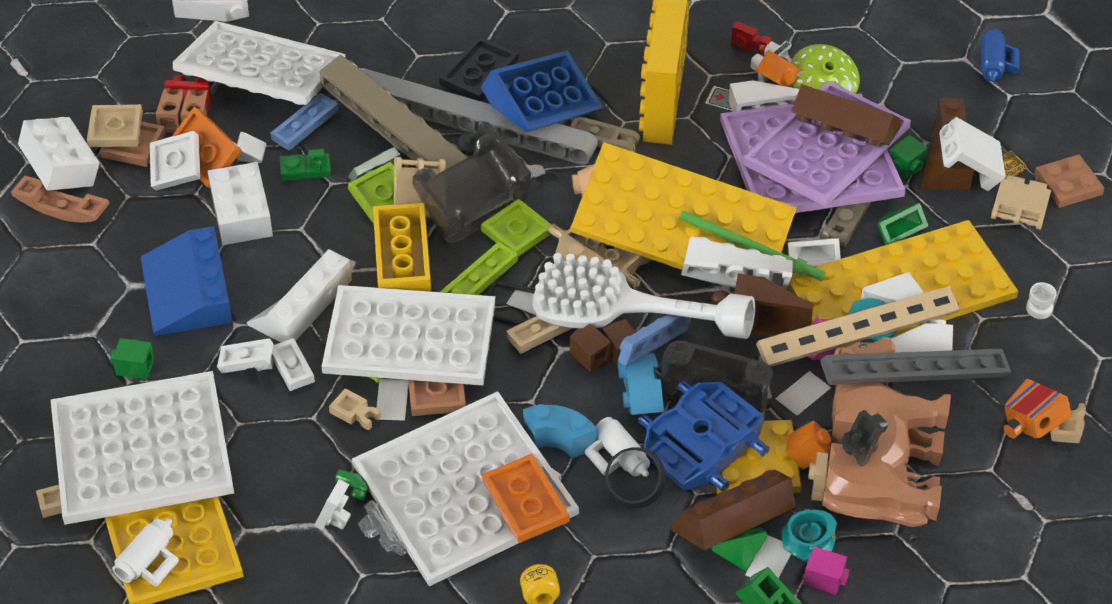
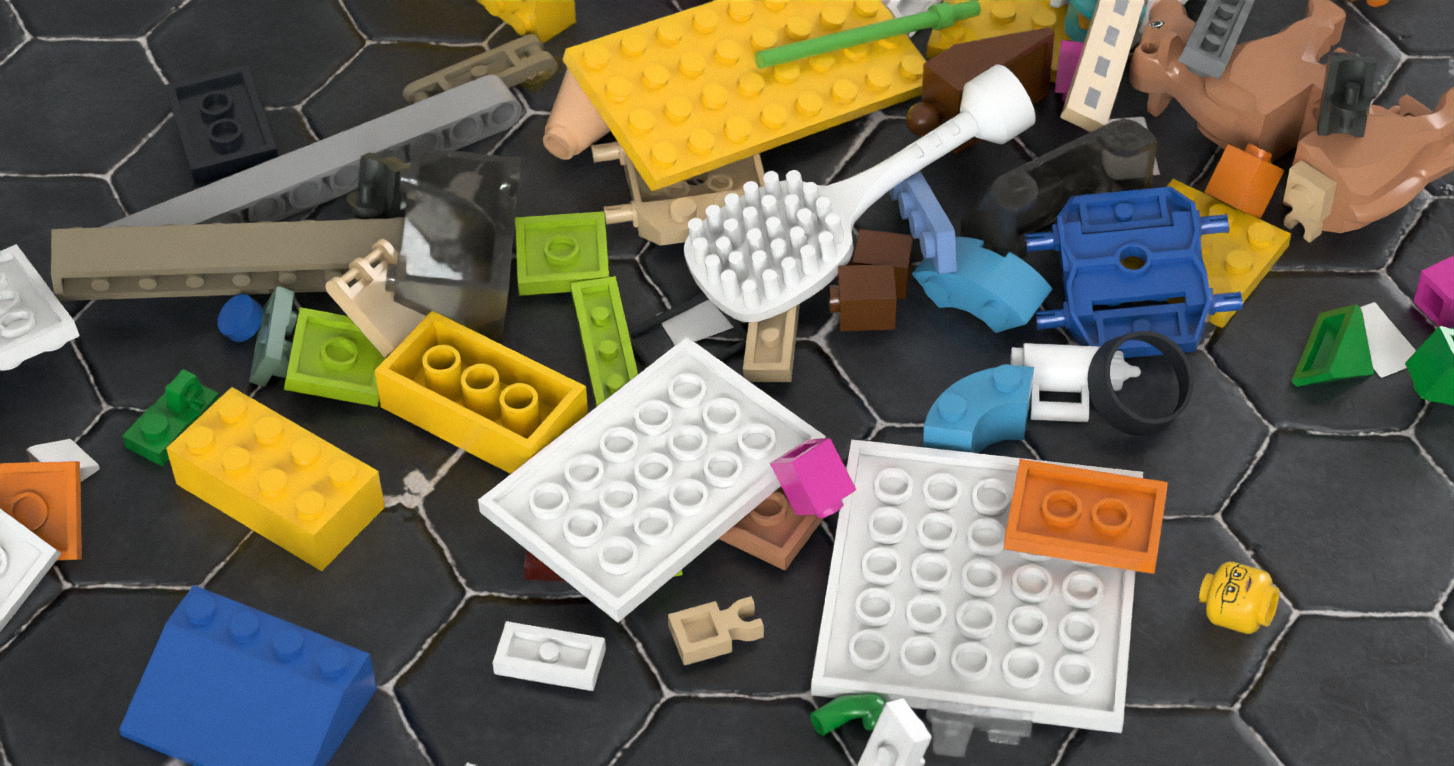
camera: 50 degrees left, 0 degrees up
(240, 203) = (164, 532): white brick -> none
(246, 355) = (481, 701): white hinge -> none
(299, 217) = (276, 478): none -> yellow brick
(304, 121) = (89, 371): medium blue plate -> none
(305, 300) = (442, 584): white wedge -> none
(375, 148) = (240, 318): none -> blue tile
(392, 399) = (727, 577): white sticker -> none
(452, 387) = (813, 478): none -> dark pink brick
(541, 92) = (364, 79): blue slope -> none
(724, 261) = (890, 67): white wedge -> none
(736, 510) = (1294, 328): reddish brown wedge -> none
(808, 530) = (1376, 270): teal hat -> none

